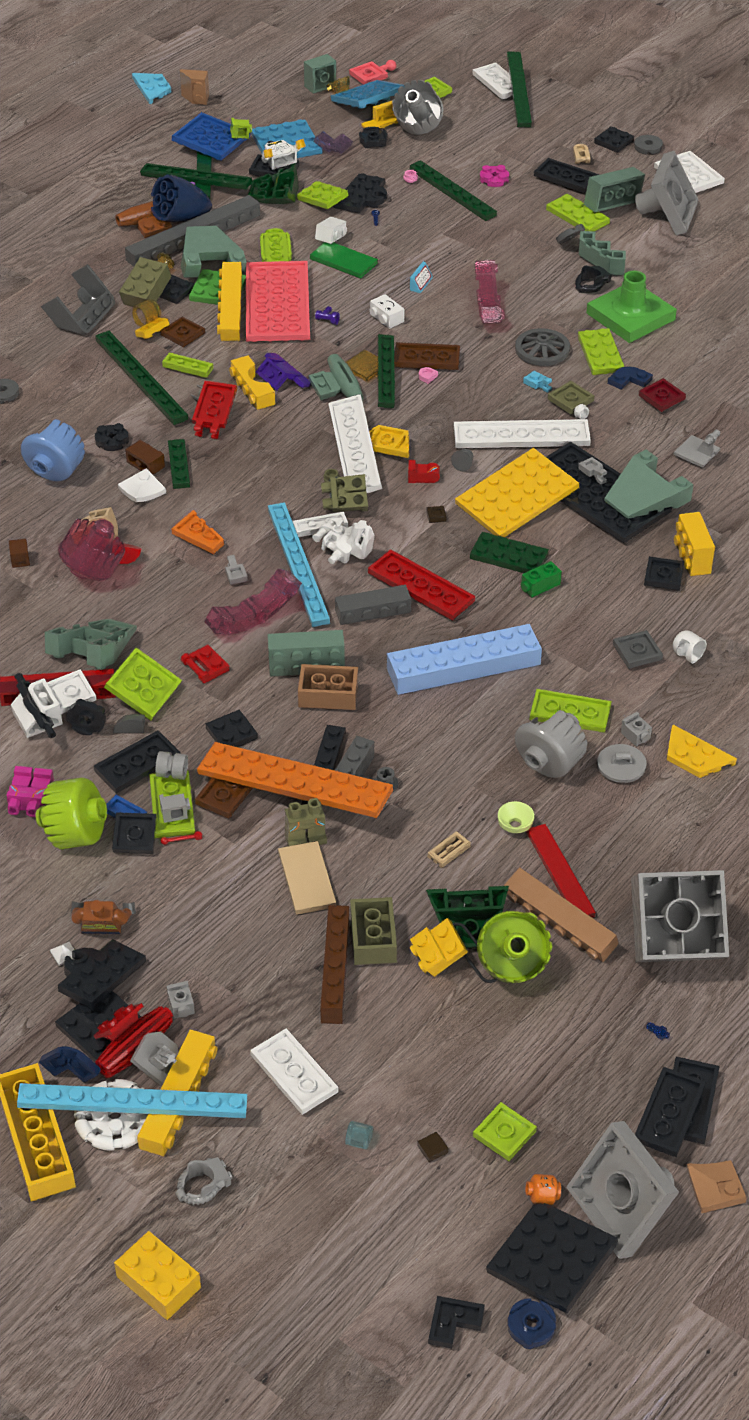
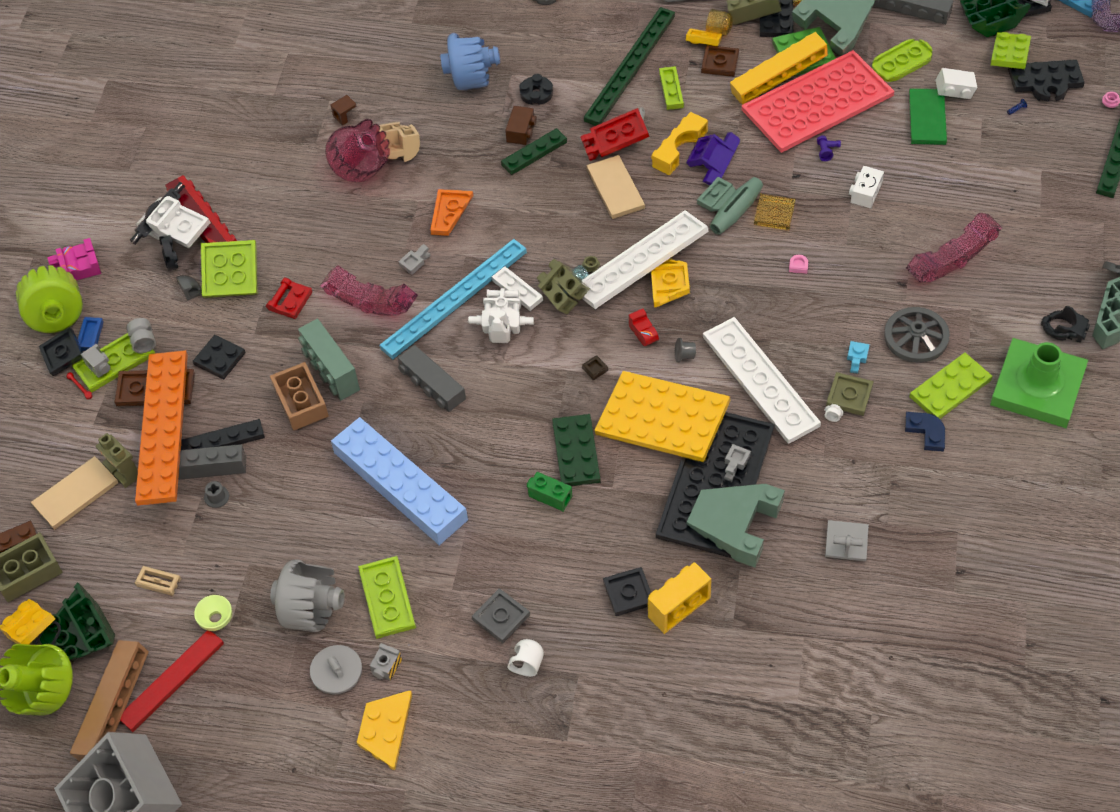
camera: 65 degrees right, 10 degrees up
(99, 641) = (268, 212): sand green wedge -> none
(131, 554) = (391, 174): red brick -> none
(133, 762) = (162, 314): black plate -> none
(142, 487) = (483, 143): white plate -> none
(261, 434) = (615, 187): none -> tan tile
(386, 371) = (769, 229): dark green plate -> none
(420, 278) = (944, 187): slope -> none
(422, 584) = (483, 402): red plate -> none
(427, 355) = (824, 250): reddish brown plate -> none
(662, 394) = (916, 470): dark red plate -> none

